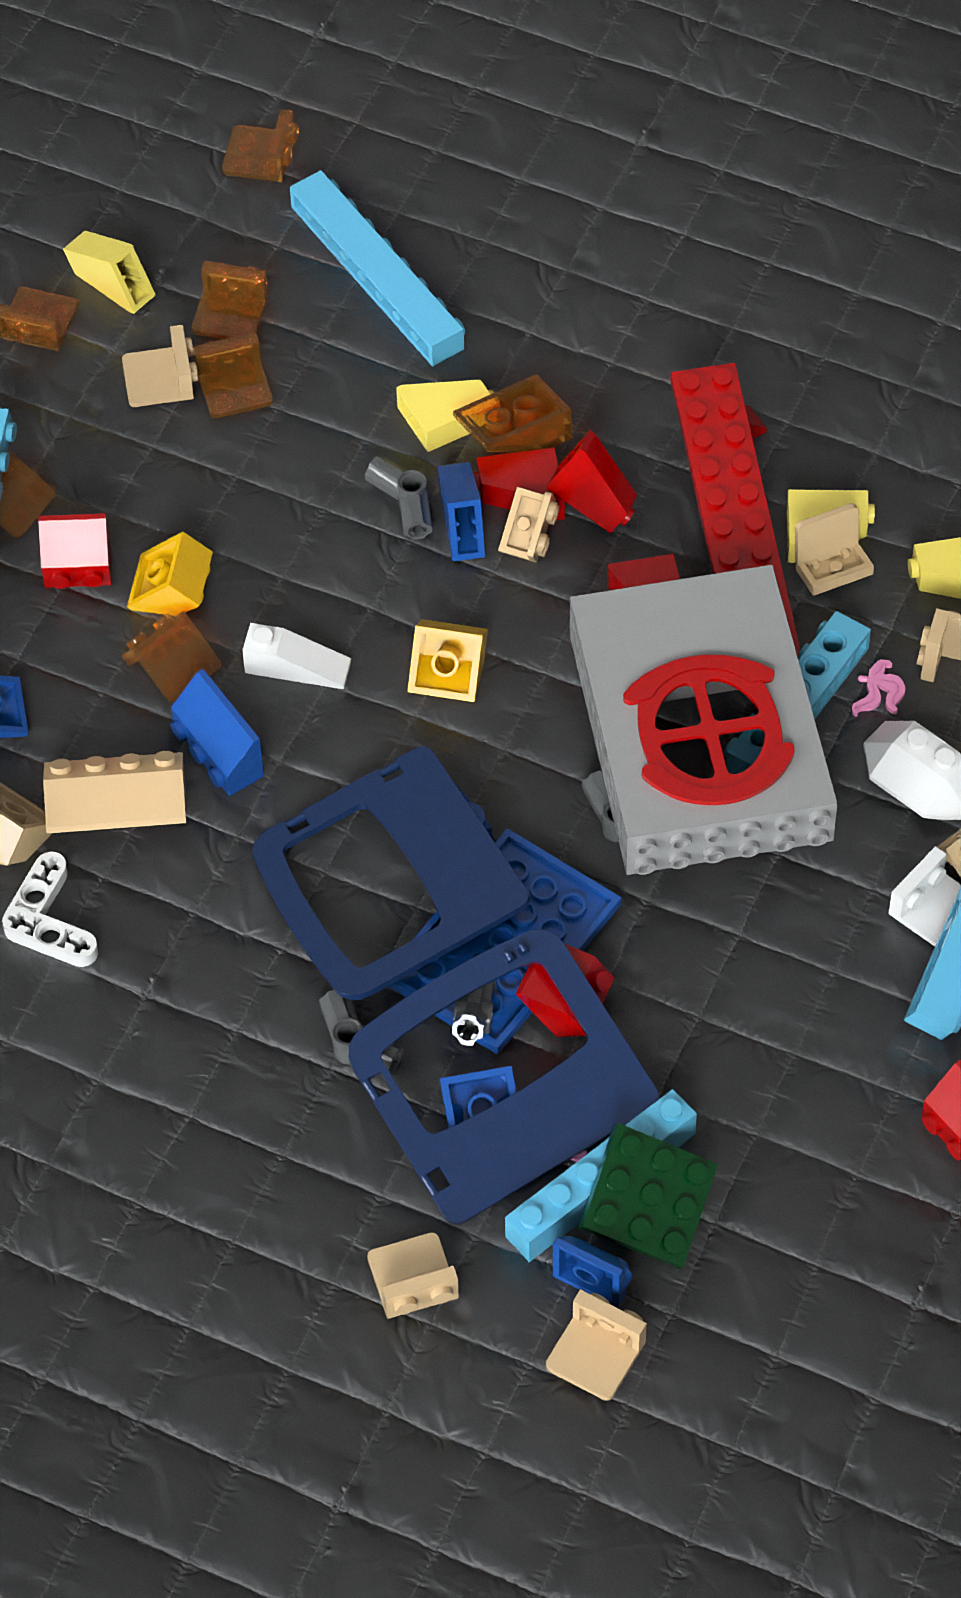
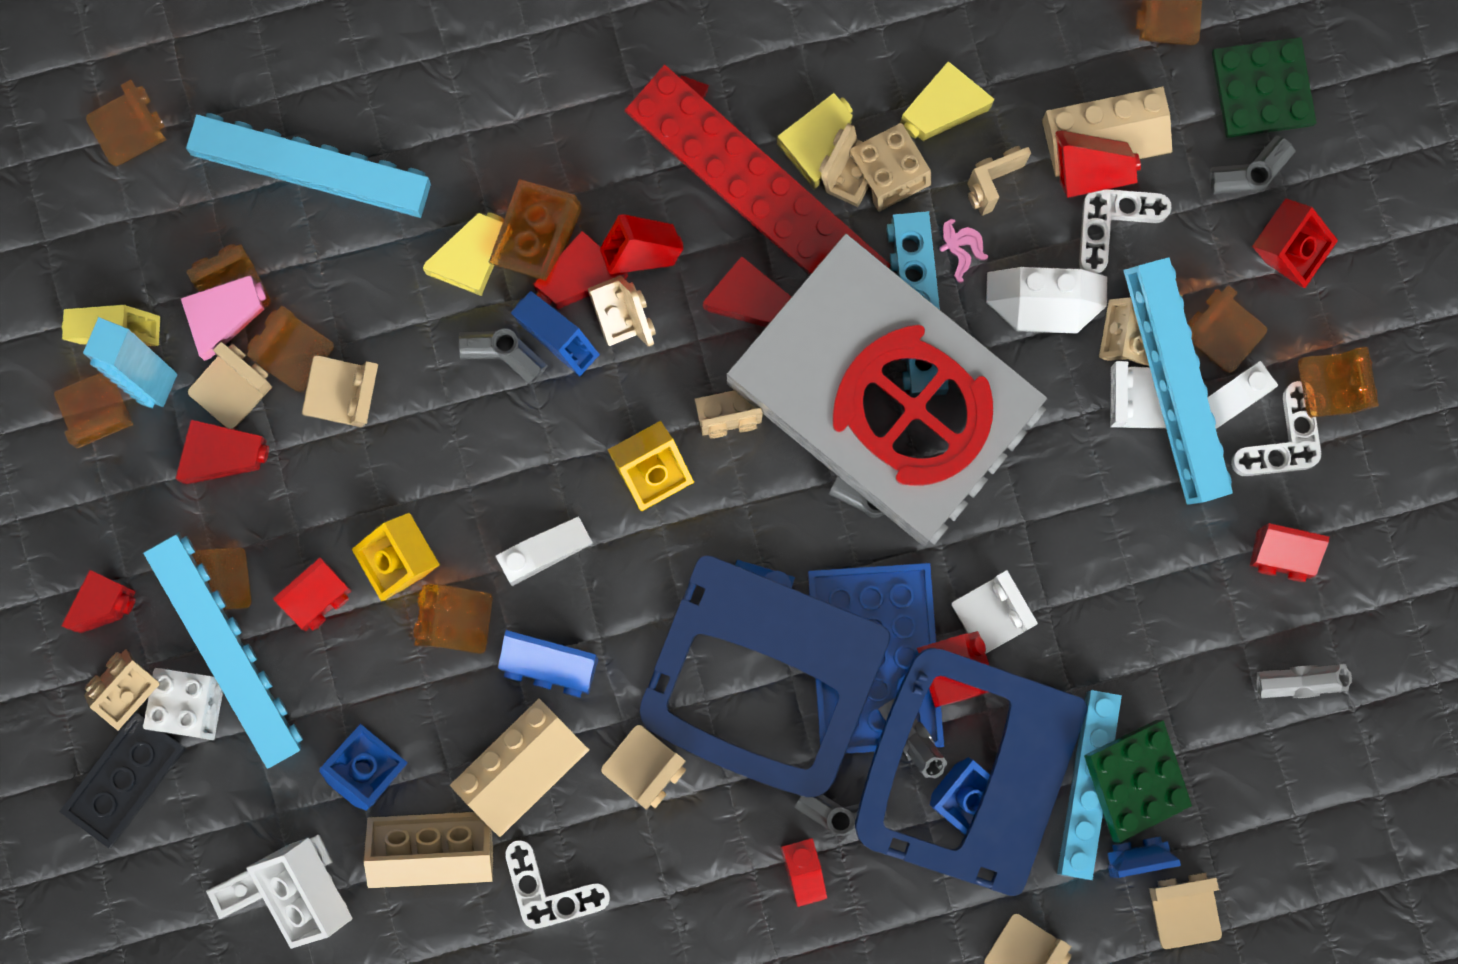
camera: 45 degrees left, 25 degrees up
(90, 253) = (129, 363): none -> medium azure brick
(103, 410) = (219, 453): none -> red slope
(205, 312) = (222, 312): none -> bright pink slope
(220, 878) = (643, 767): none -> tan bracket
(244, 431) = (339, 391): none -> tan bracket
(278, 1044) = (804, 872): none -> red slope
(547, 666) = (726, 412): none -> tan bracket
(644, 979) = (995, 611): none -> white bracket
(868, 583) = (891, 166): none -> tan bracket
(881, 1238) = (1303, 681): none -> light grey piece

